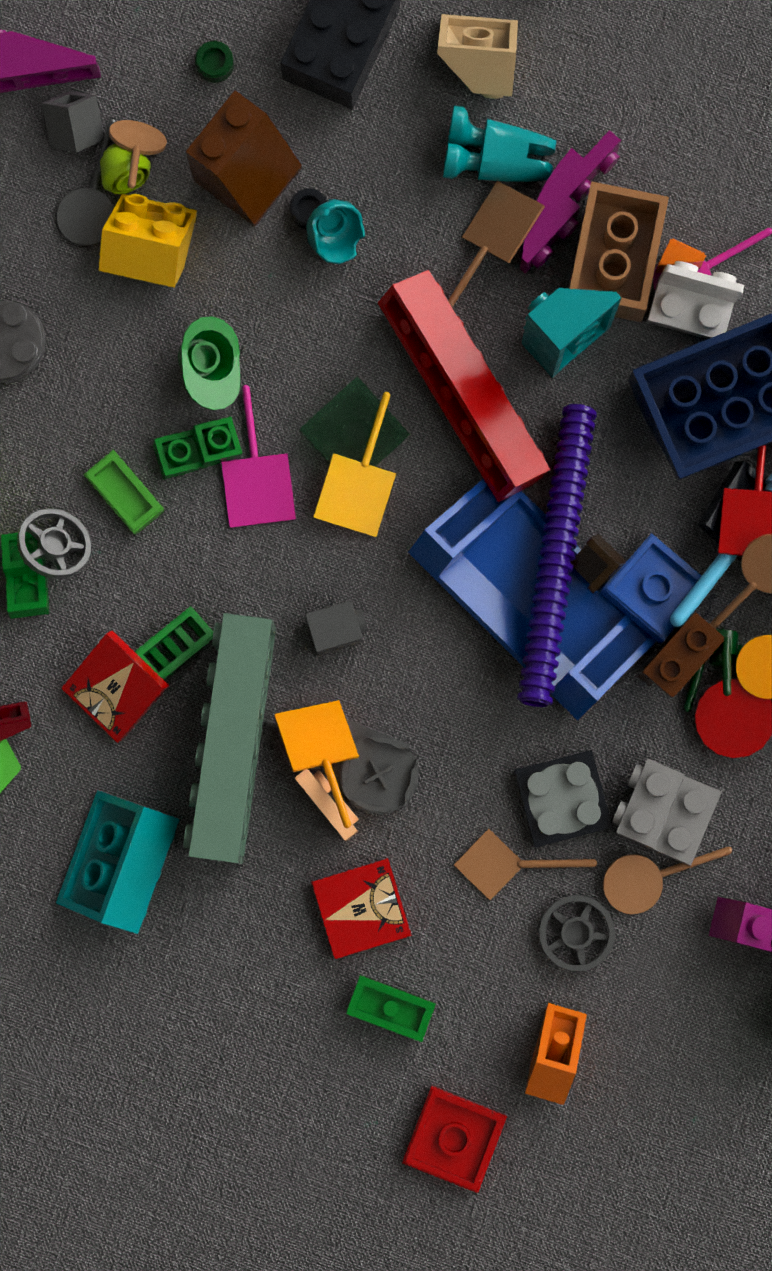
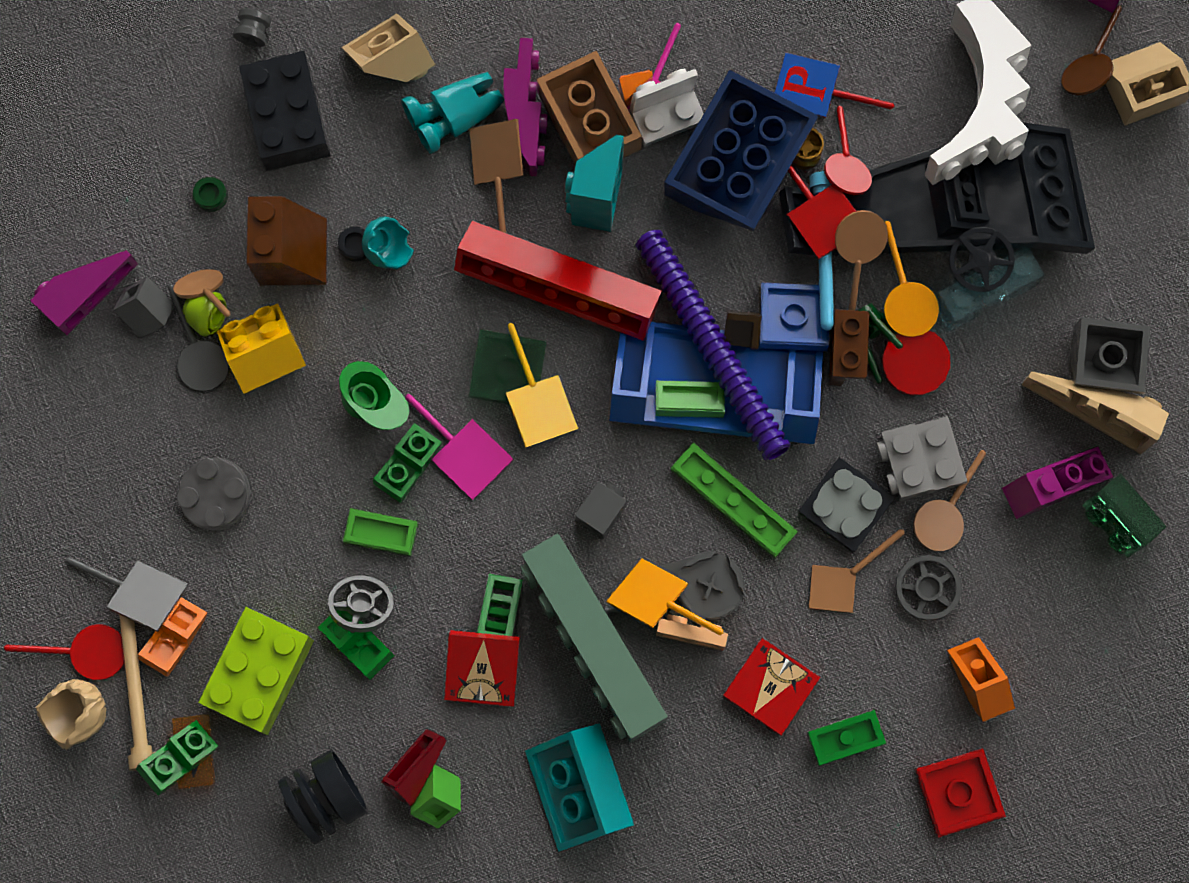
camera: 40 degrees left, 5 degrees down
(464, 713) = (734, 500): none -> bright green tile
(496, 589) = (689, 399): none -> bright green tile

